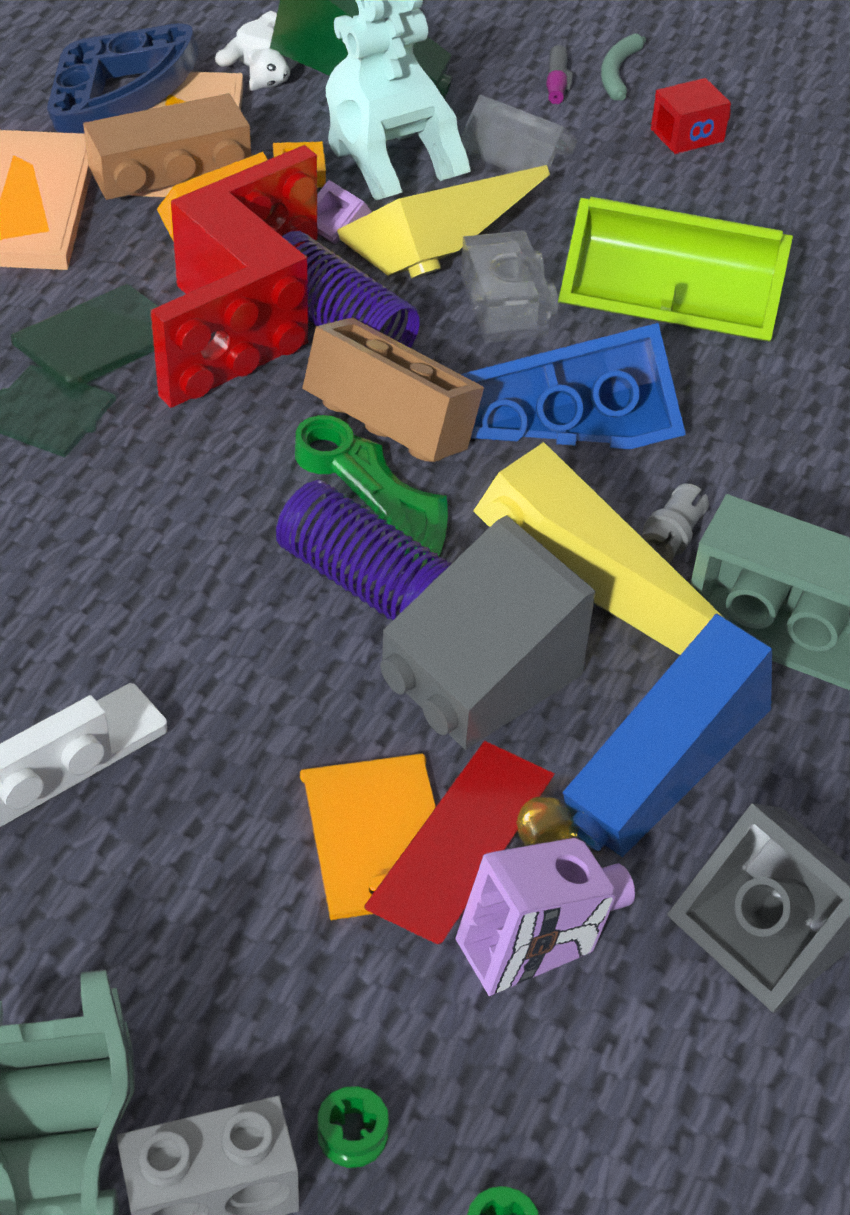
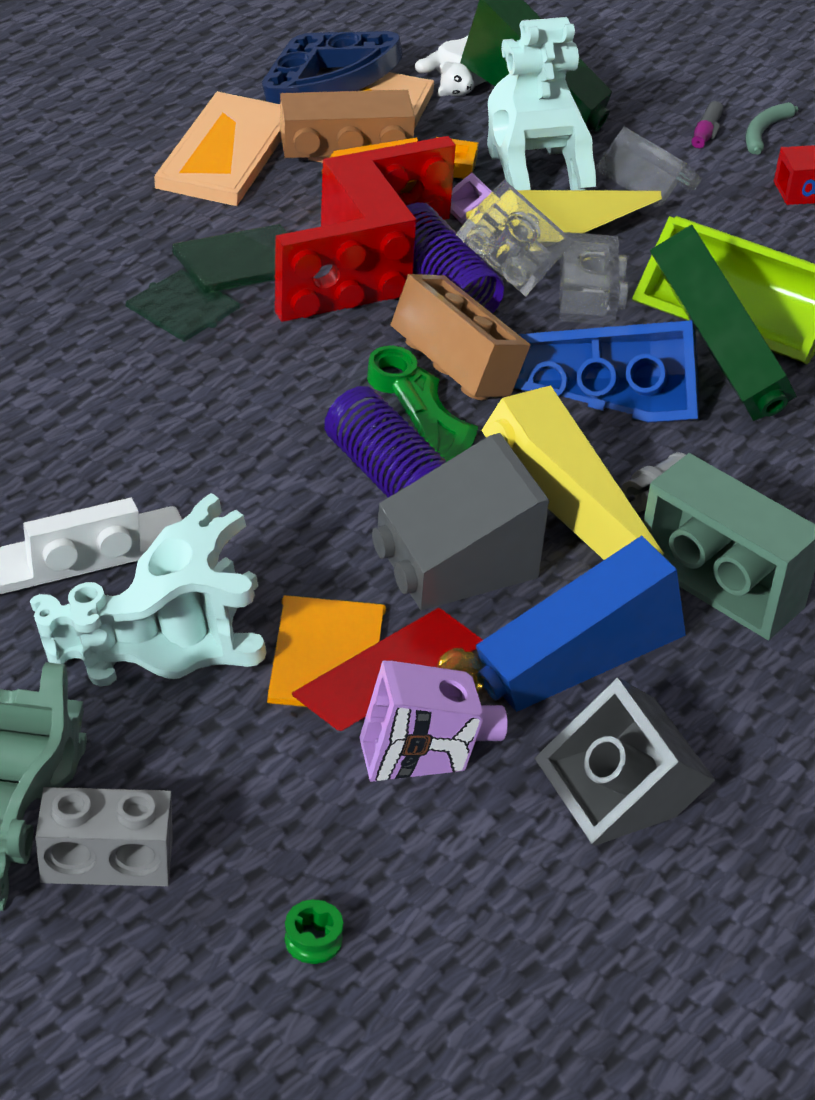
camera: 15 degrees right, 5 degrees down
(190, 839) = (172, 613): none -> light aqua animal
(330, 1135) = (236, 853): green bush -> none
(419, 256) = (514, 237): none -> clear brick
(691, 321) = (723, 324): none -> dark green slope

